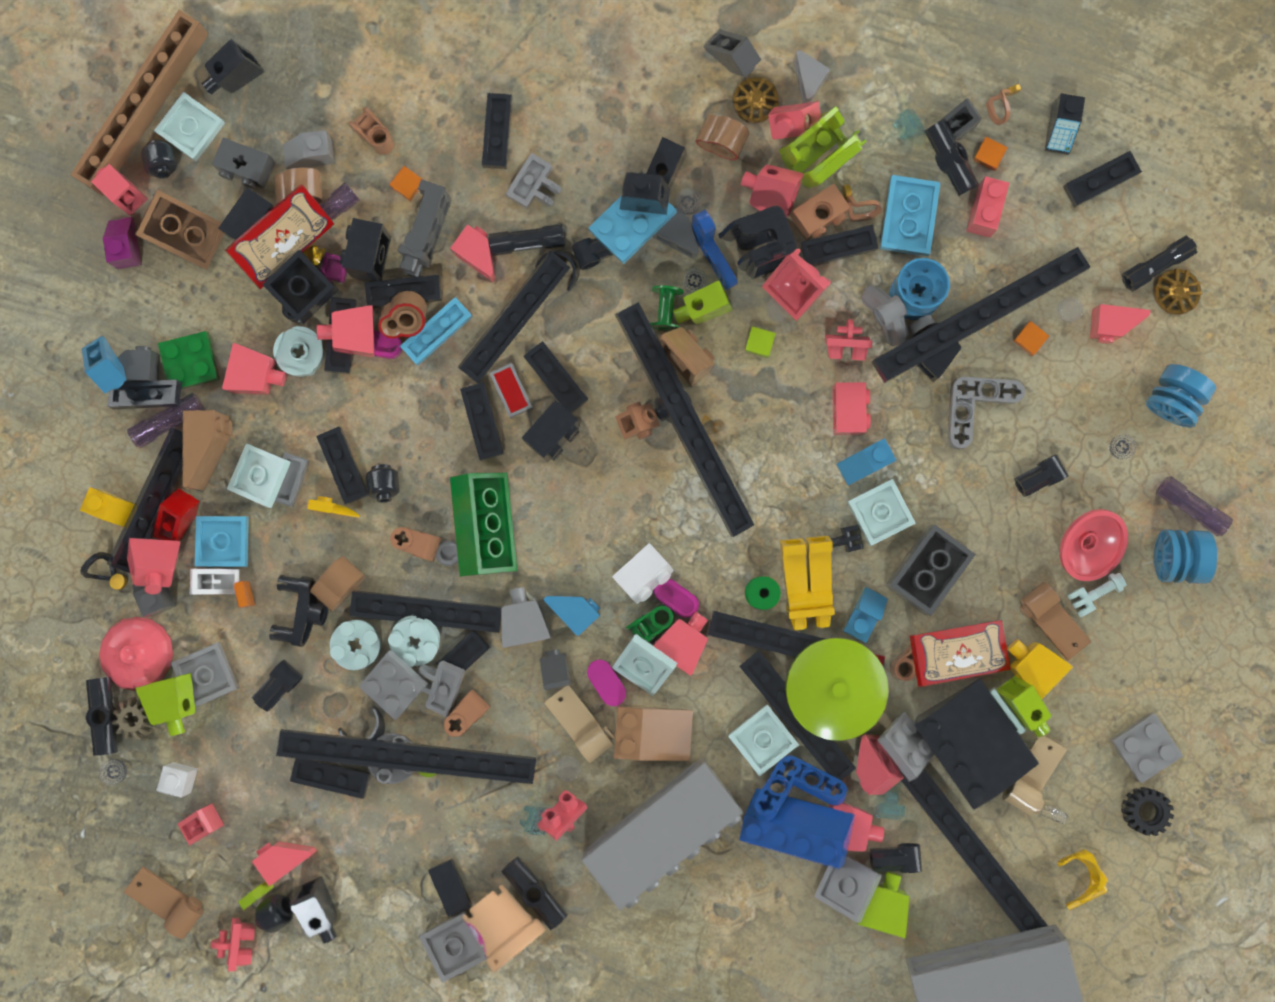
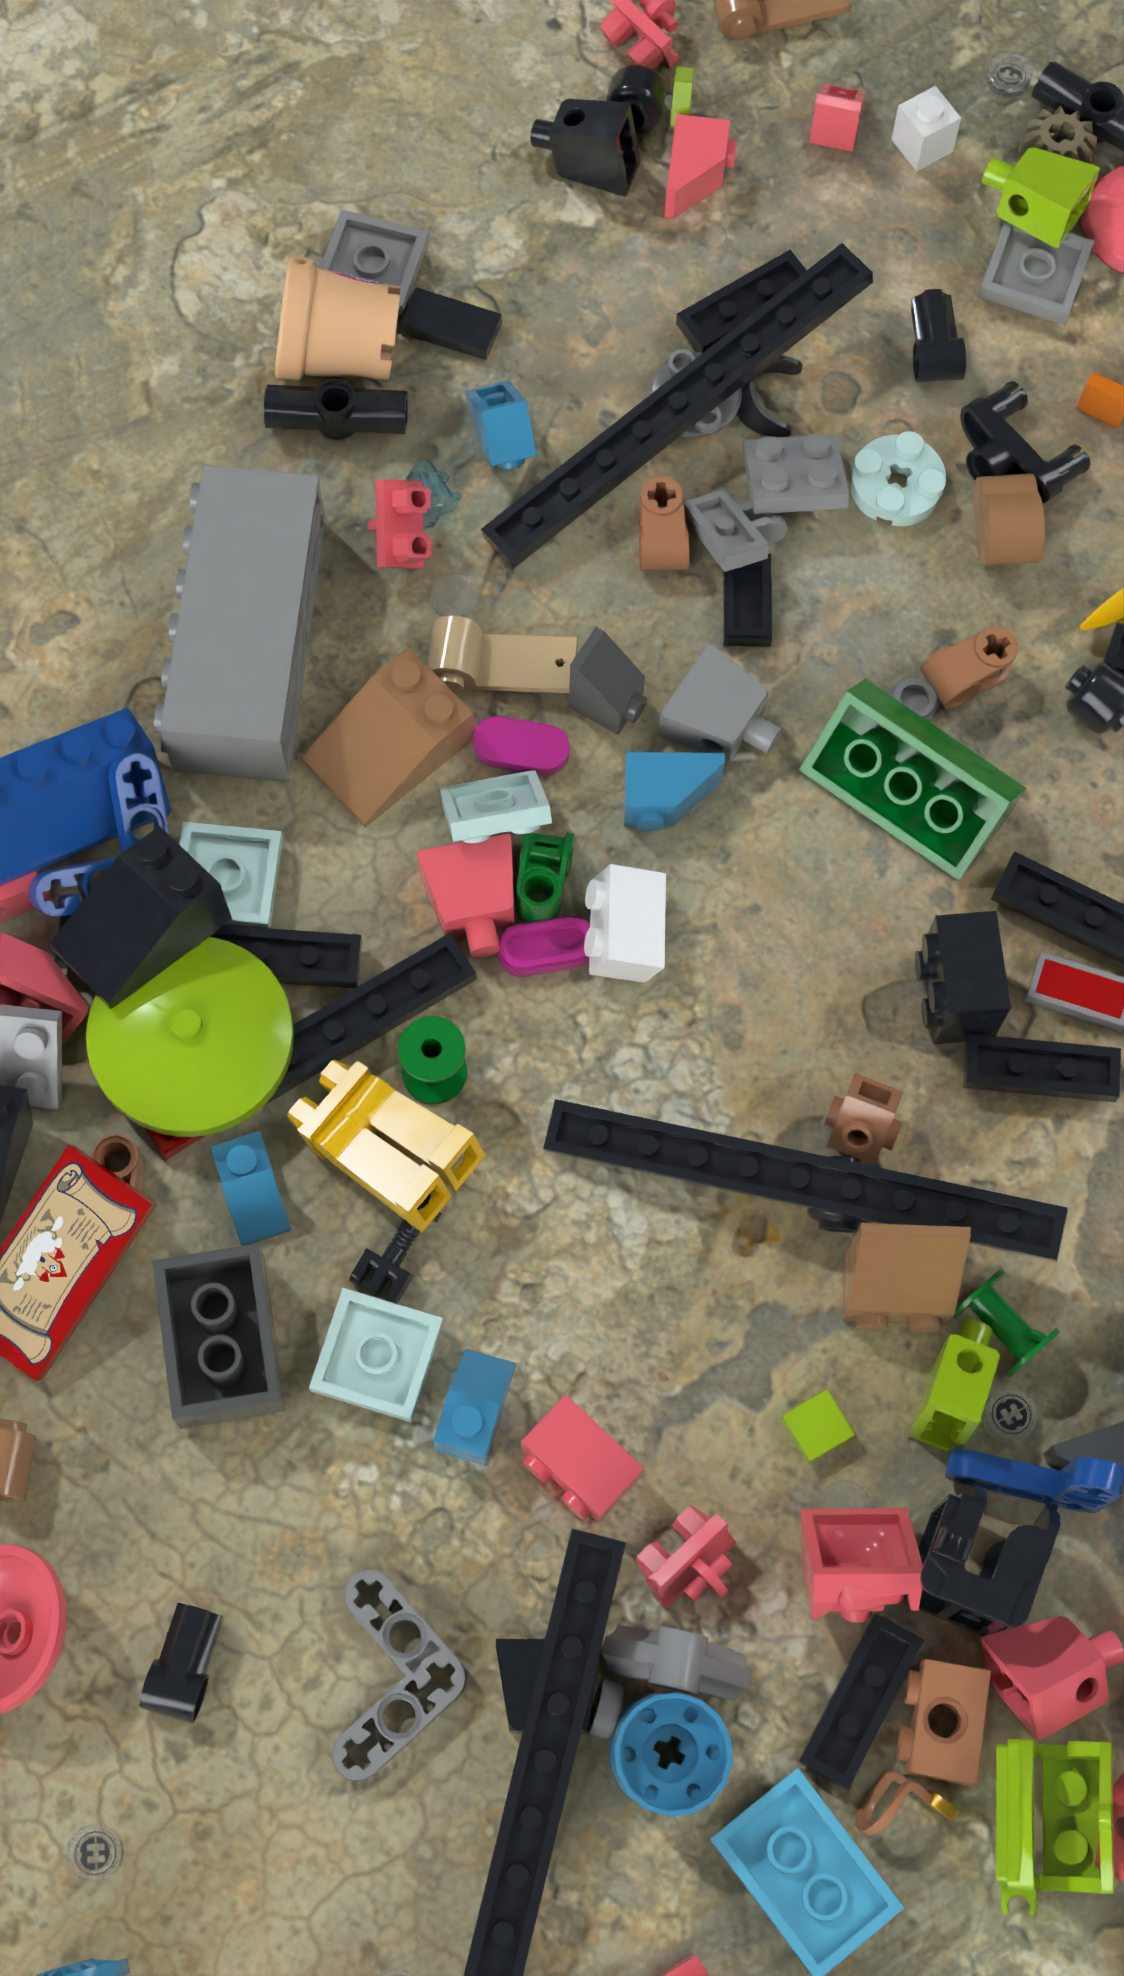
camera: 130 degrees right, 15 degrees down
(417, 628) = (824, 529): light aqua plate -> none
(439, 612) = (859, 599): black plate -> none
(478, 822) = (502, 424): none -> dark azure slope
(817, 748) = (141, 918): none -> black slope
(1031, 338) = (413, 1877): orange tile -> none

